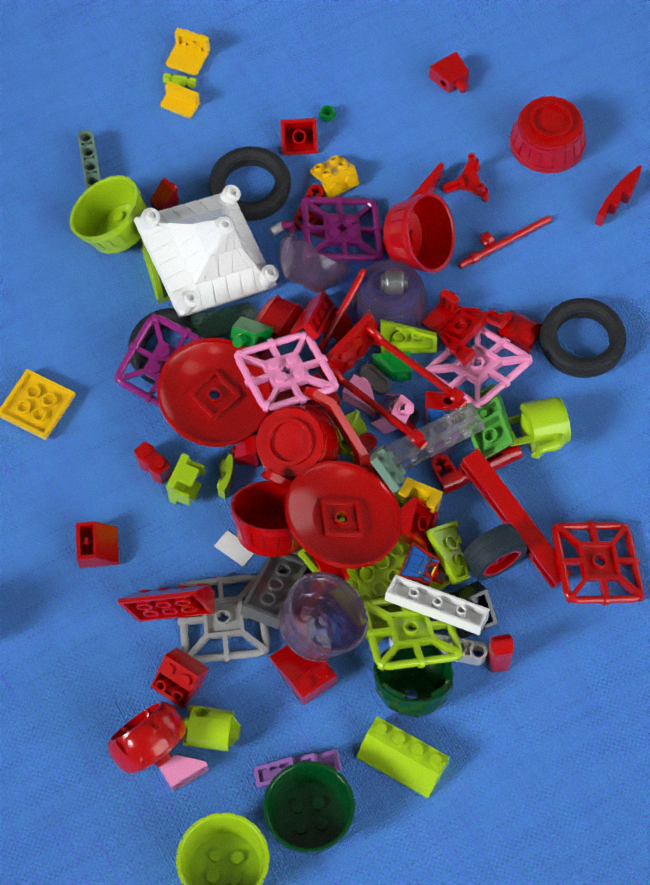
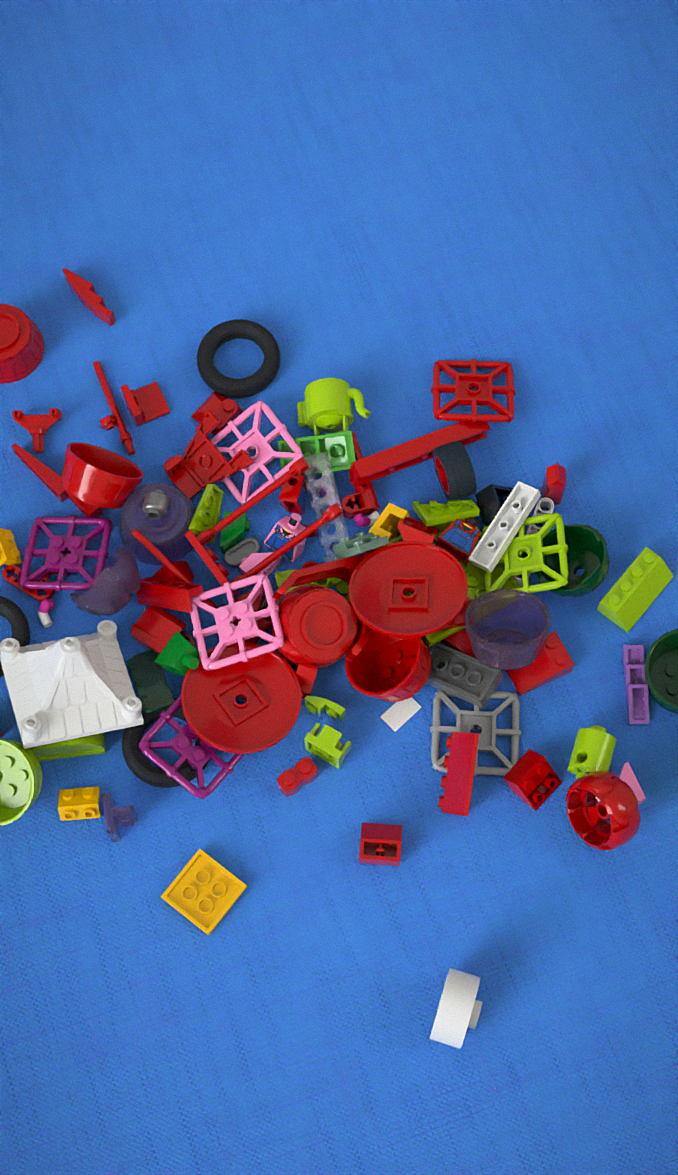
camera: 80 degrees left, 5 degrees up
(92, 315) = (117, 816): none -> clear purple bracket
(106, 289) = (79, 803): none -> yellow bracket
(427, 479) = (366, 521): none -> dark pink arm
(513, 264) = (145, 403): none -> red bracket

